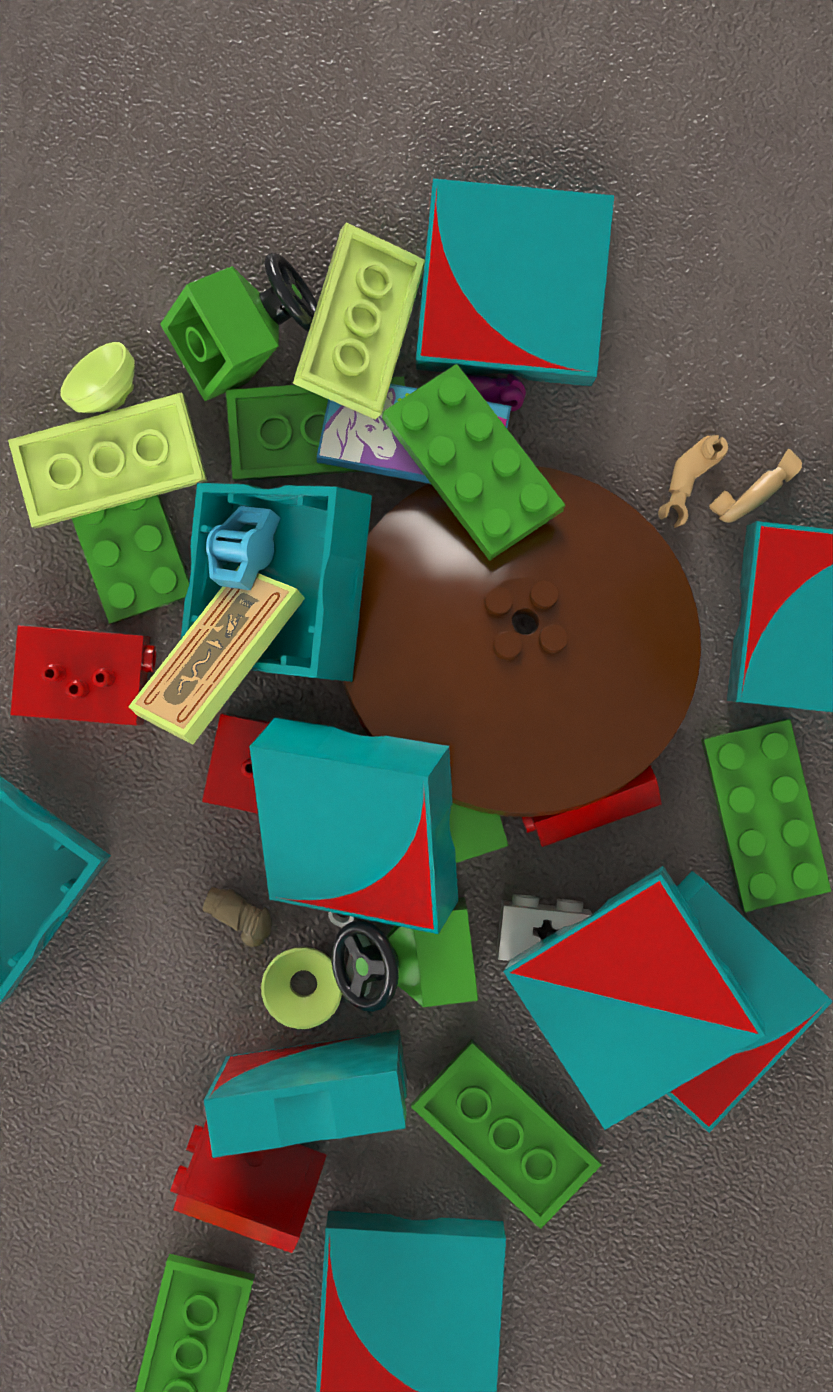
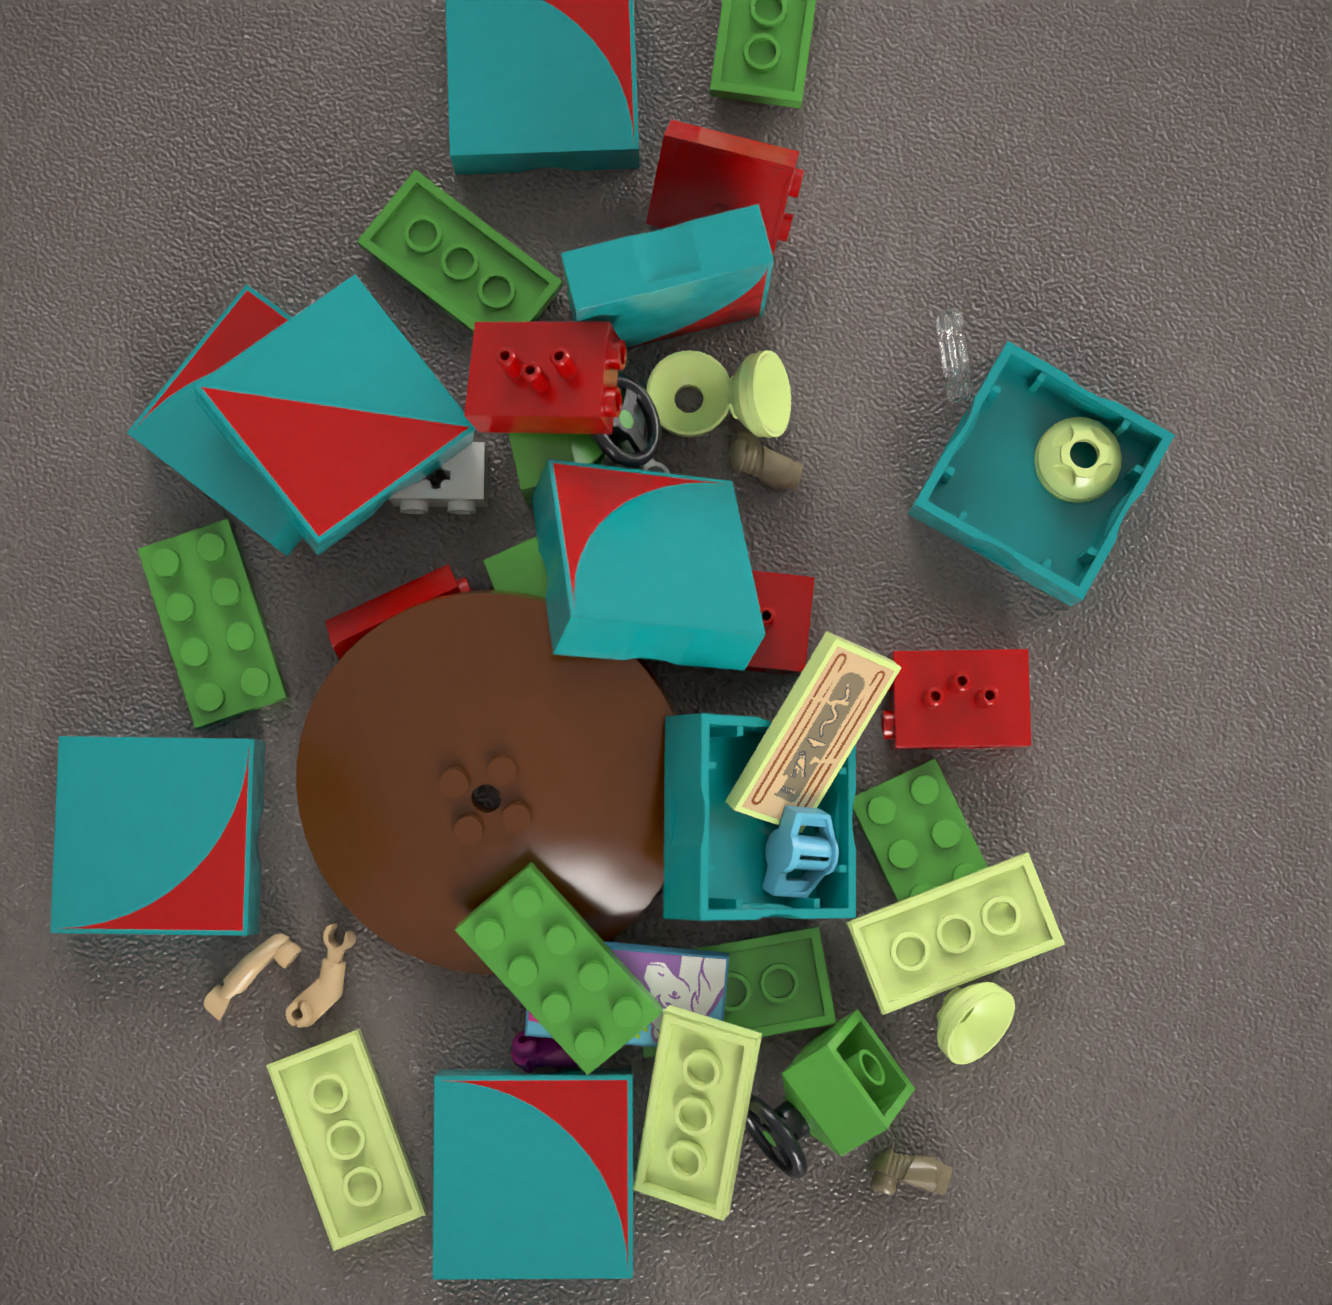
camera: 170 degrees right, 5 degrees down
(49, 999) = (954, 356): none -> clear axle
(168, 252) = (917, 1171): none -> dark tan arm
(234, 979) = (761, 394): none -> yellowish green piece
(433, 1012) = (544, 377): none -> red piece
(682, 331) = (346, 1139): none -> yellowish green tile

